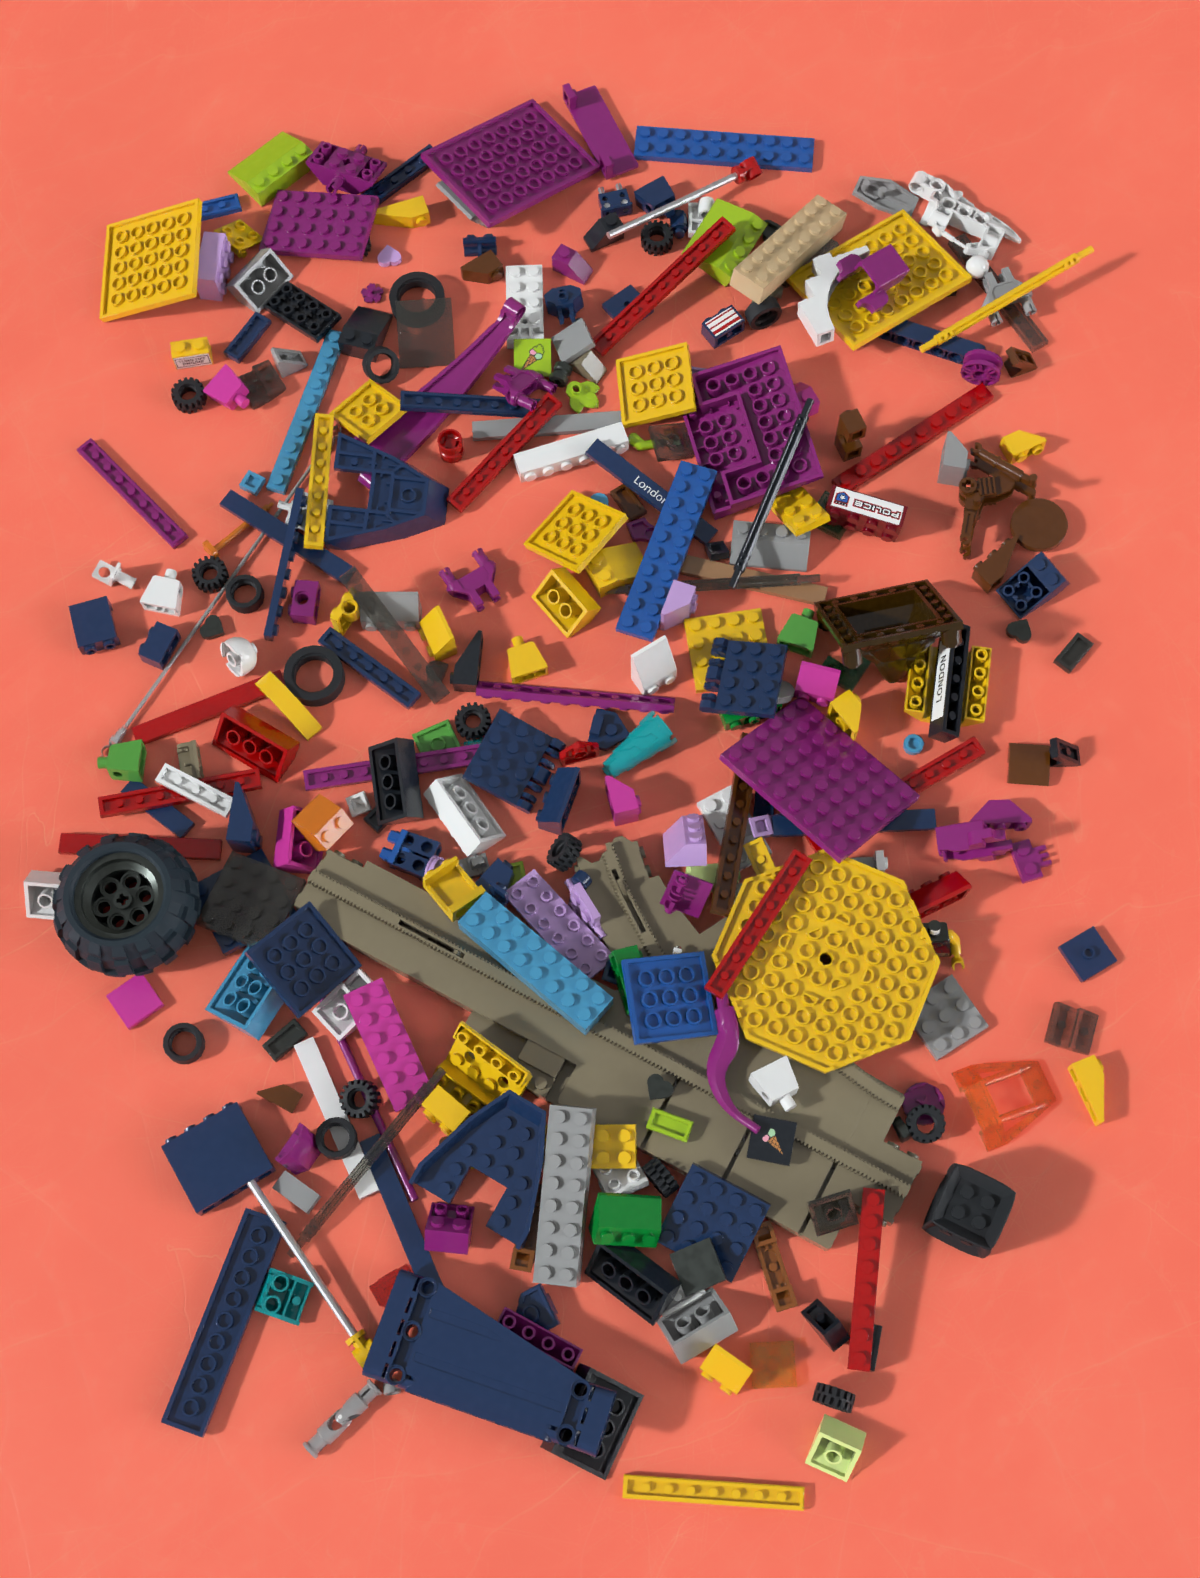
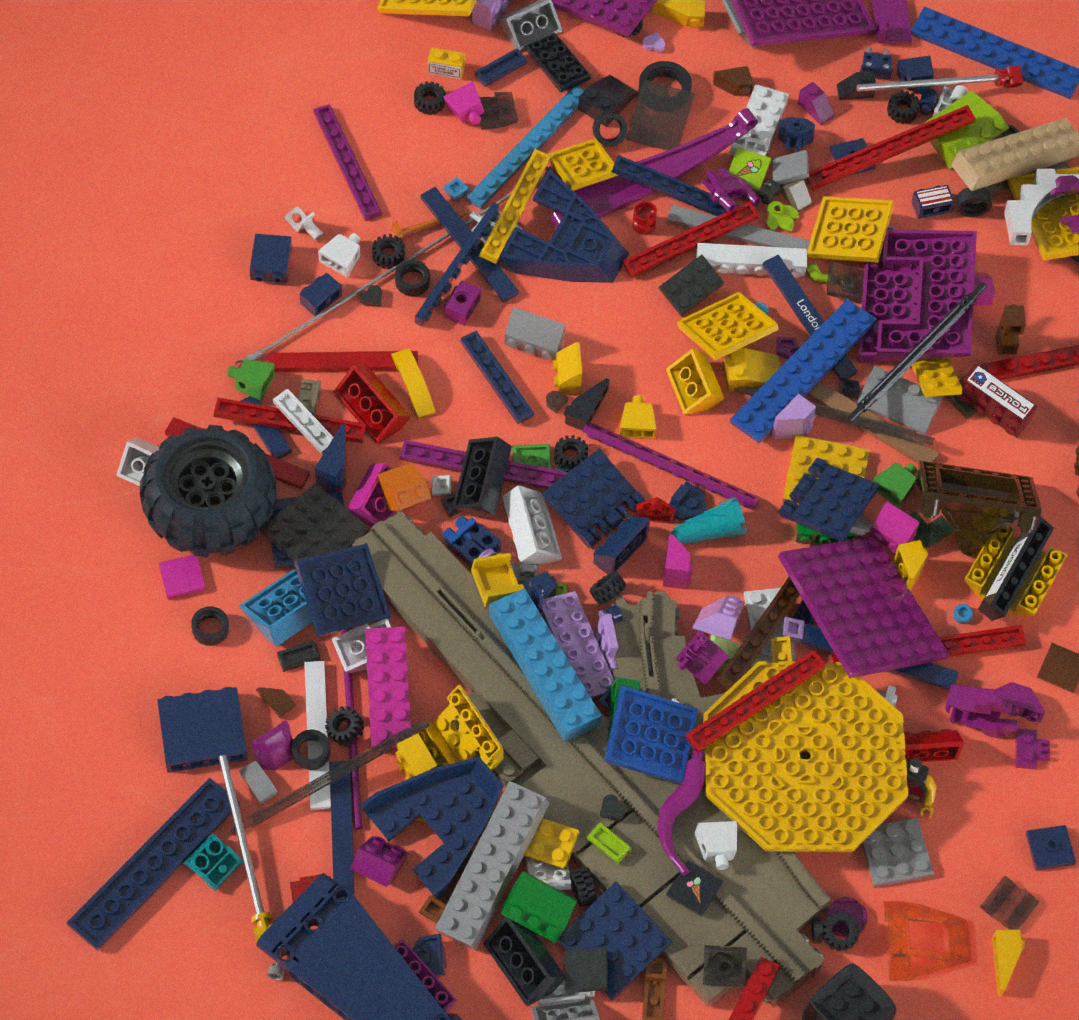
camera: 15 degrees right, 10 degrees down
(240, 654) = (387, 325): white cylinder -> none
(288, 361) = (528, 98): light grey slope -> none
(308, 654) = (452, 347): black tyre -> none
(345, 613) = (495, 322): yellow plate -> none
(351, 1409) = (230, 977): light grey piece -> none
(372, 293) = (626, 69): magenta plant -> none
(394, 635) = (530, 355): clear smoke tile -> none
(474, 583) = (619, 339): magenta connector -> none
(479, 245) = (735, 59): dark blue hips -> none
(523, 500) = (691, 285): none -> pearl dark grey plate
(628, 502) = (786, 320): reddish brown tile -> none
(653, 666) = (750, 461): white slope -> none

